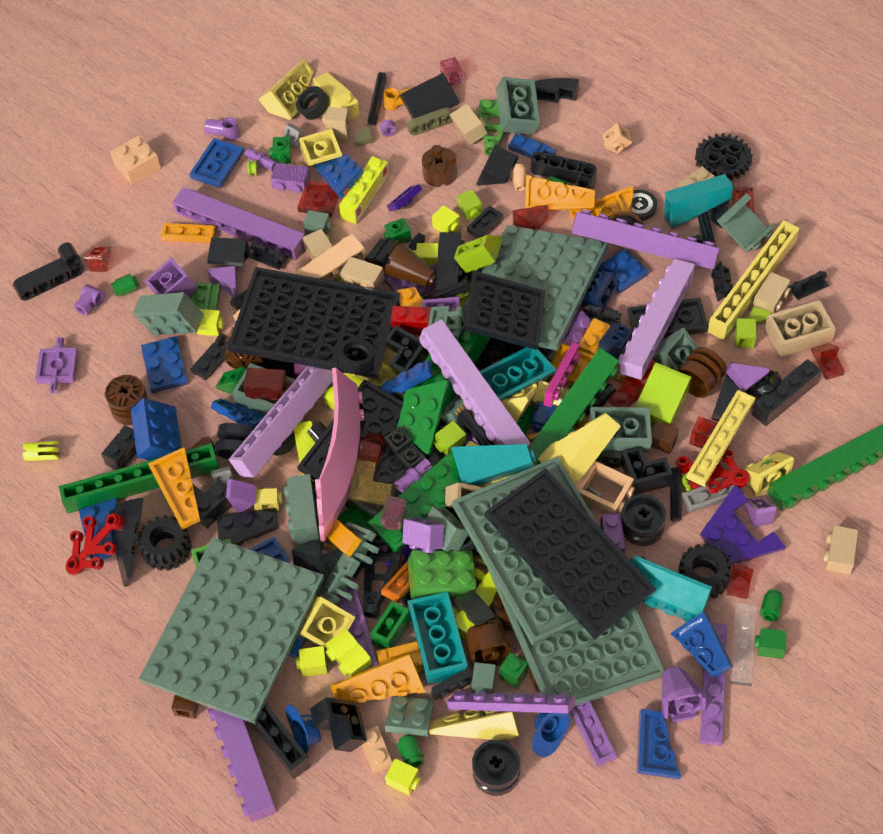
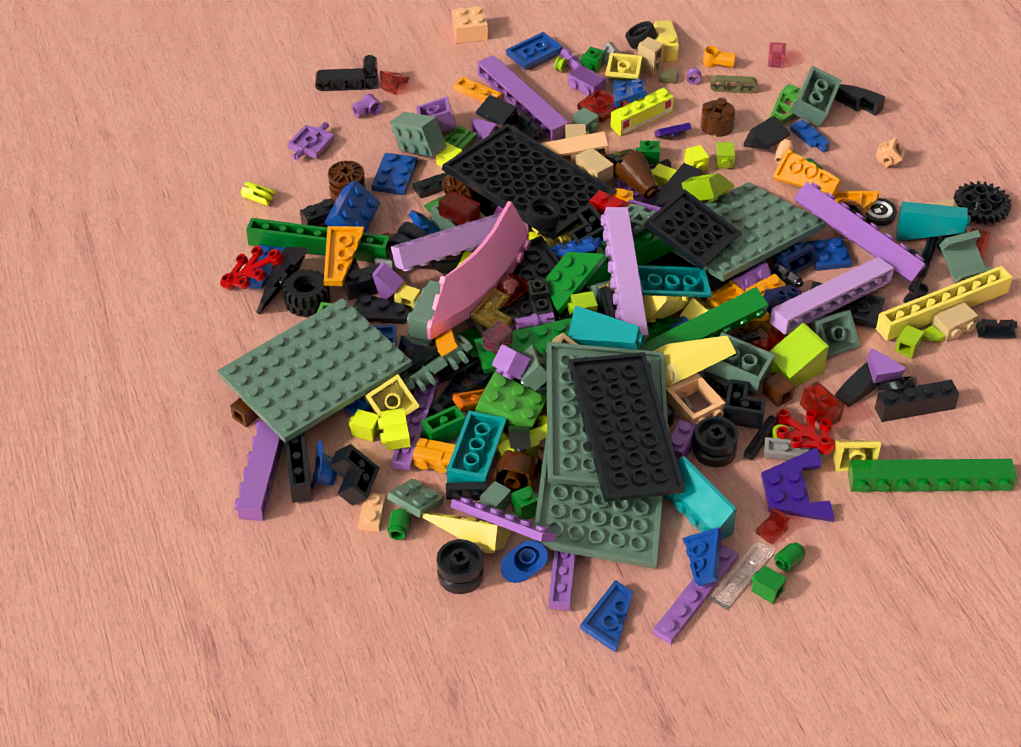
camera: 25 degrees right, 10 degrees down
(125, 285) = (401, 105): green brick -> none
(226, 128) = (557, 28): medium lavender piece -> none
(283, 95) = (619, 21): light yellow wedge -> none
(377, 98) = (699, 53): black axle -> none
(385, 680) = (412, 461): light orange wing -> none
(403, 777) = (379, 539): neon yellow brick -> none
(429, 96) = (744, 63): black tile -> none
(468, 124) = (765, 96): tan brick -> none
(484, 222) = (733, 171): black plate -> none
(530, 217) = (774, 183): clear red slope -> none
(561, 376) = (712, 299): dark pink plate -> none
(566, 169) = (828, 159): black beam -> none
(680, 695) = (656, 586): medium lavender cone -> none
(705, 370) = (846, 351): reddish brown wheel -> none
(711, 558) = (752, 492): black tyre -> none
(720, 438) = (825, 404): light yellow tile -> none
(760, 511) = (828, 482): medium lavender slope -> none
(800, 328) = (962, 356): tan brick -> none
(828, 361) = (975, 395): clear red slope -> none
(841, 549) = (884, 541): tan piece -> none

